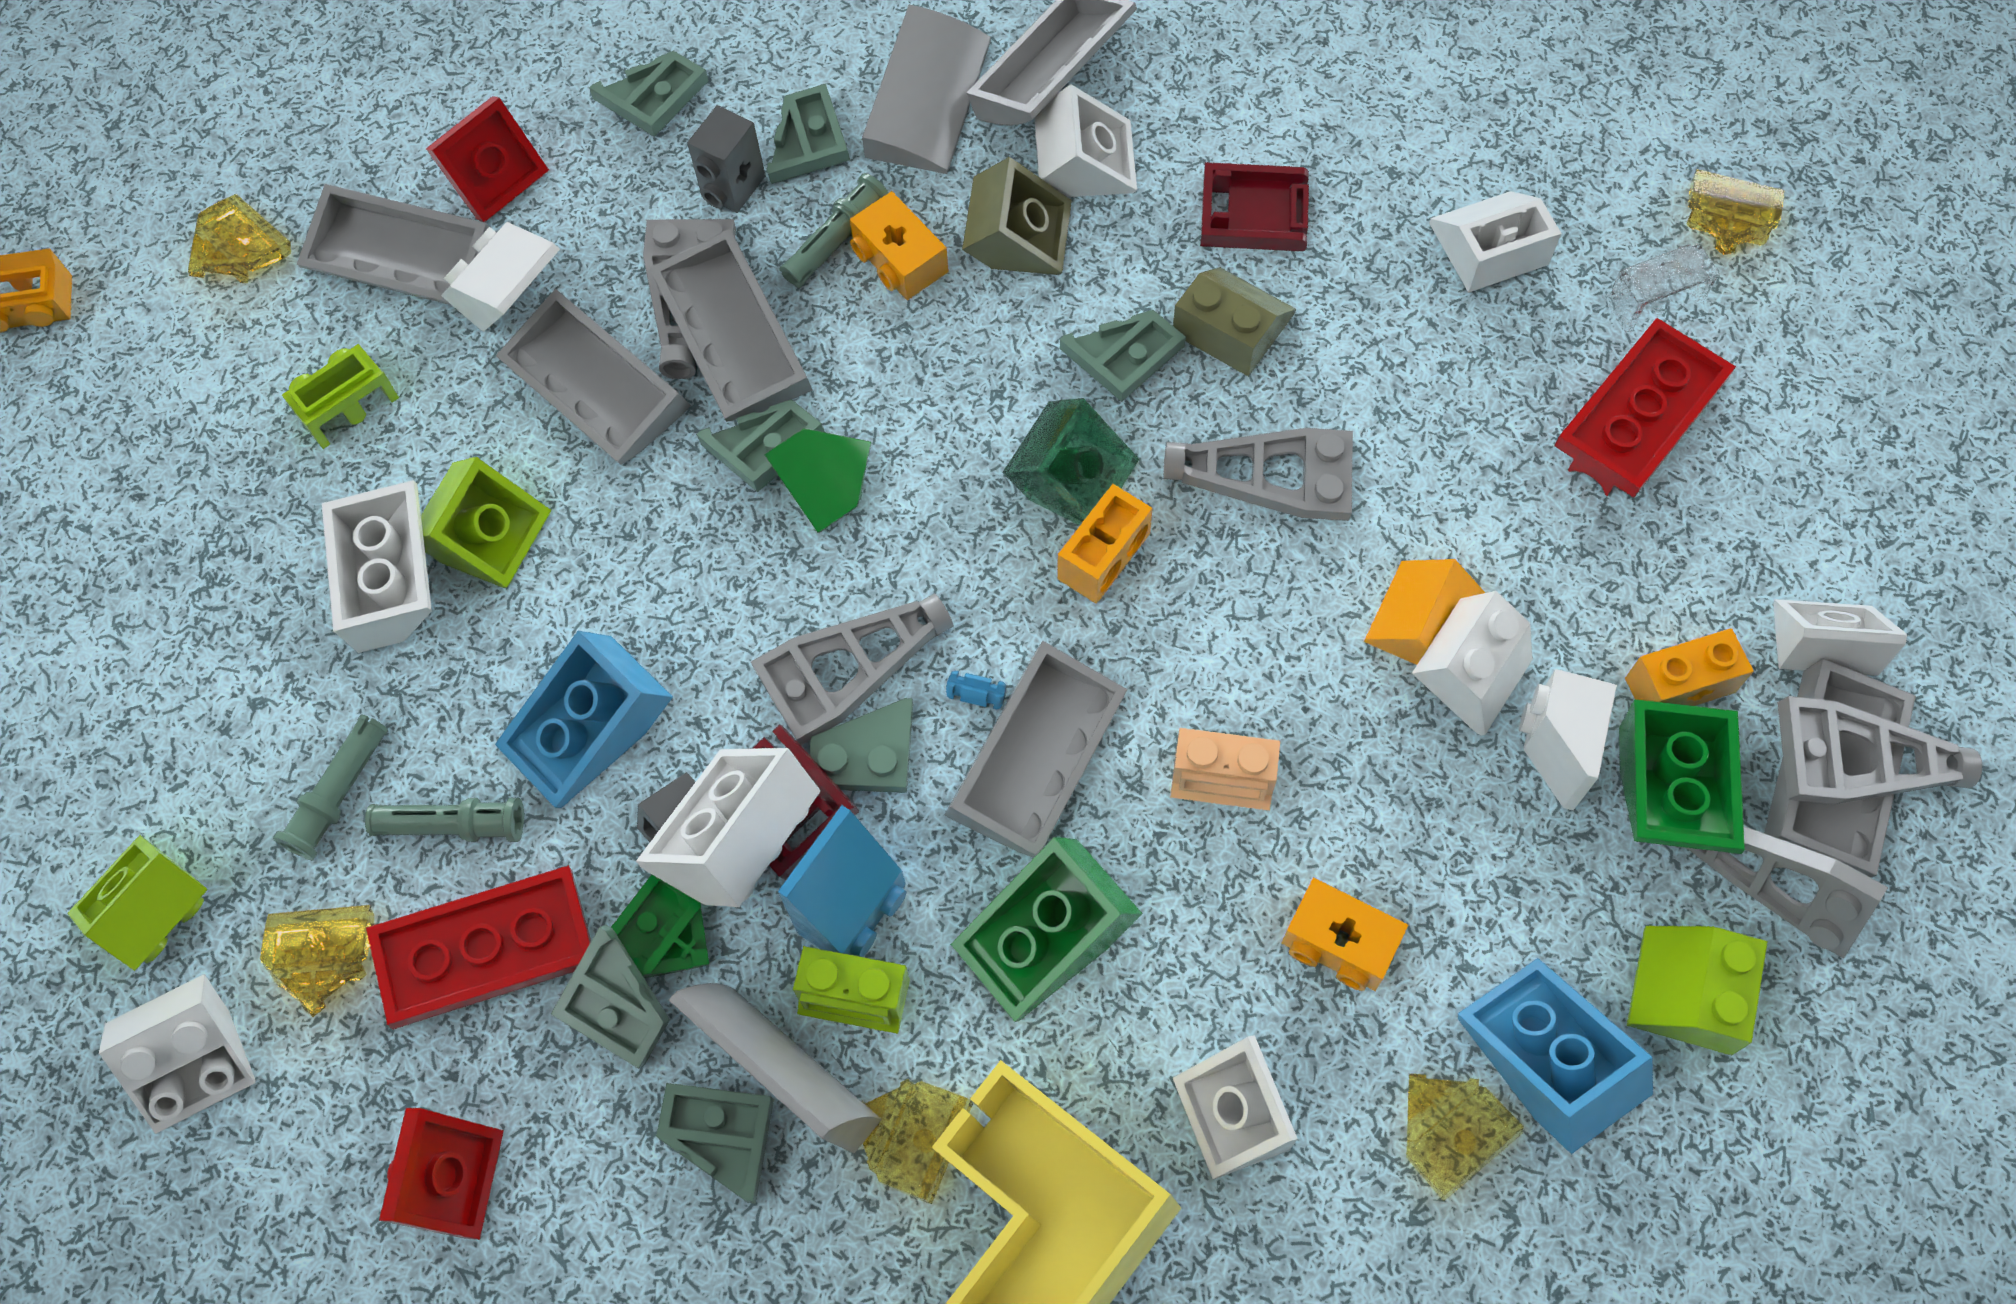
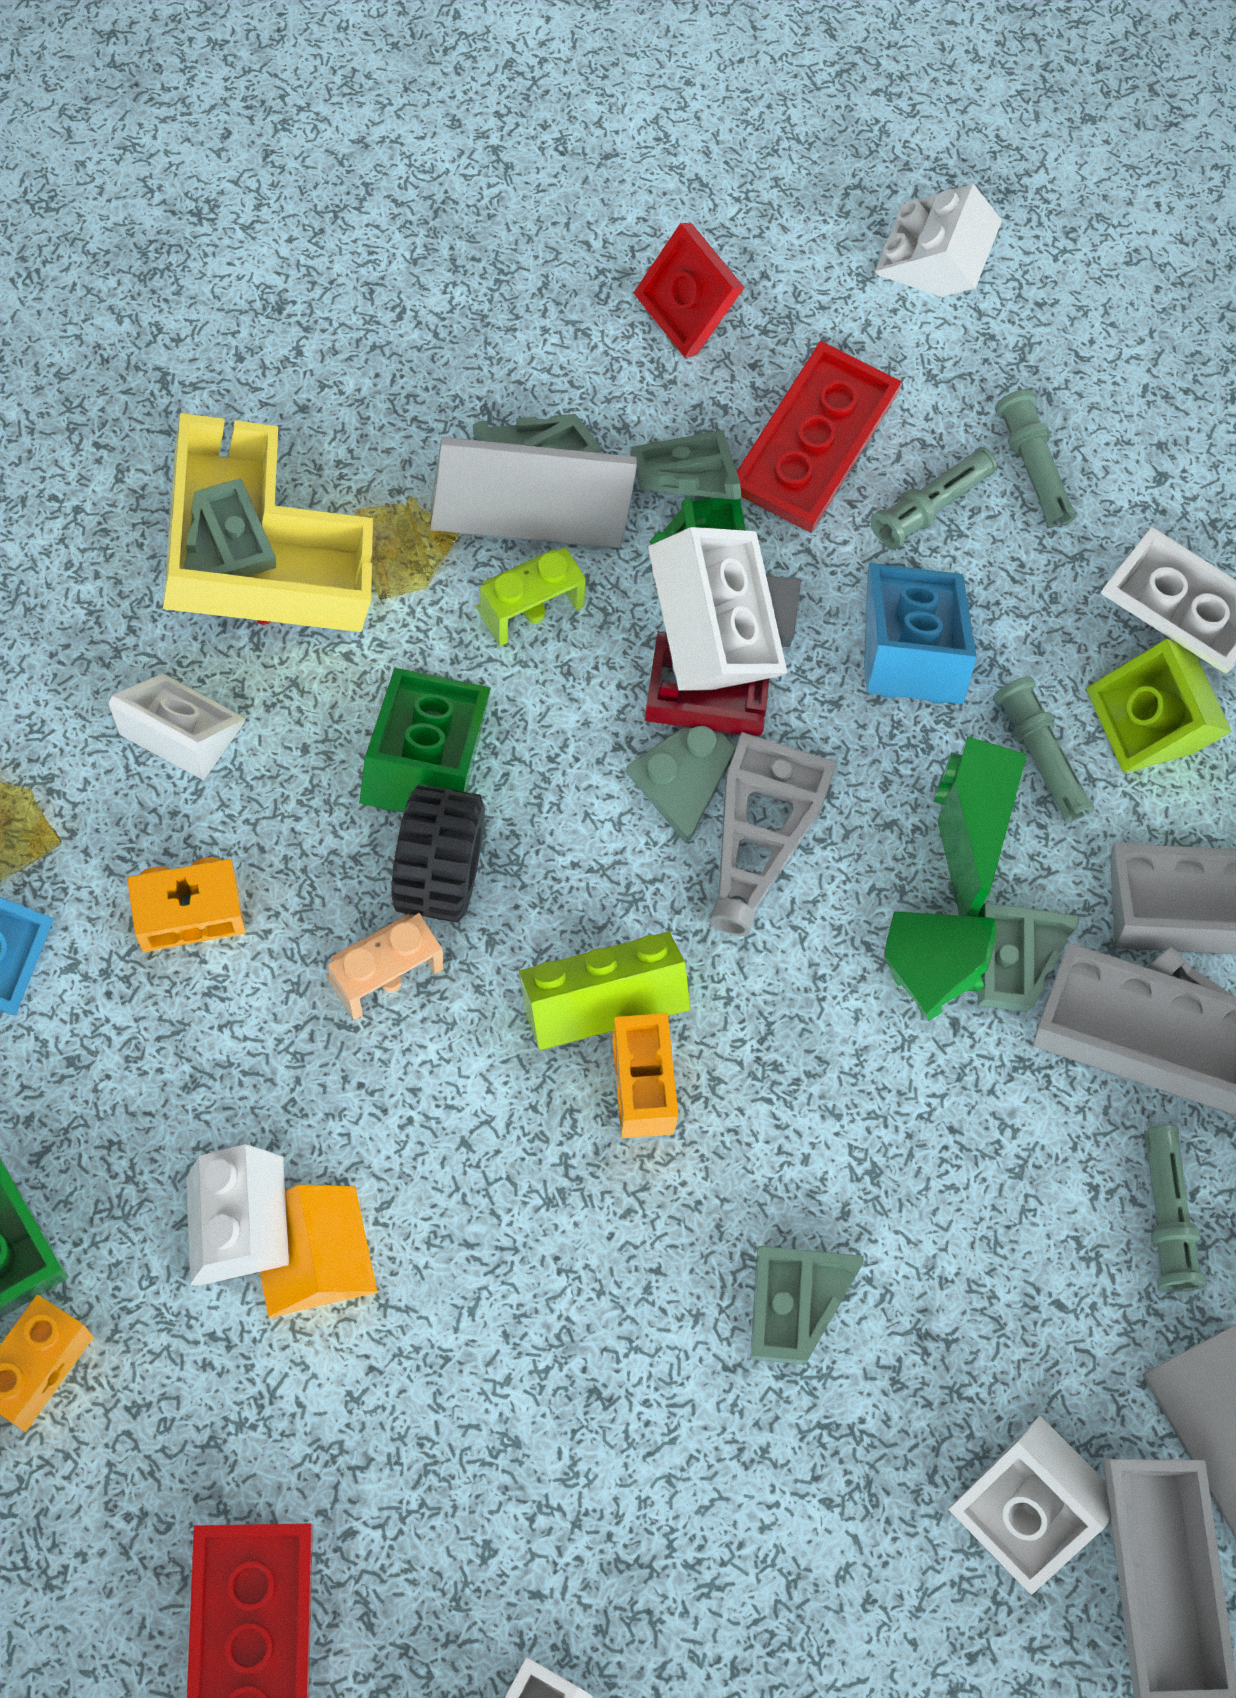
camera: 130 degrees right, 0 degrees up
(138, 904) = (1073, 296): lime slope -> none
(316, 951) = (925, 358): clear yellow slope -> none
(582, 578) = (1034, 729): none -> sand green pin
(705, 525) = (974, 816): none -> green slope
(843, 888) = (591, 634): dark azure slope -> none
(898, 246) = (1071, 1246): light orange brick -> none
(976, 689) = (644, 885): dark azure piece -> none
(1016, 220) = (1017, 1357): olive slope -> none
(1036, 751) = (549, 866): light grey slope -> none
(1070, 460) = (742, 1139): clear green slope -> none
(1076, 1231) = (227, 533): none -> sand green wing
(1079, 622) = (586, 991): none -> lime brick
(1122, 801) = (437, 853): none -> black tyre
(1230, 318) = (730, 1425): olive slope -> none
(1260, 207) = (808, 1592): dark red container -> none
(1326, 470) = (511, 1325): light grey plate -> none
(1568, 732) = (106, 1204): white slope -> none

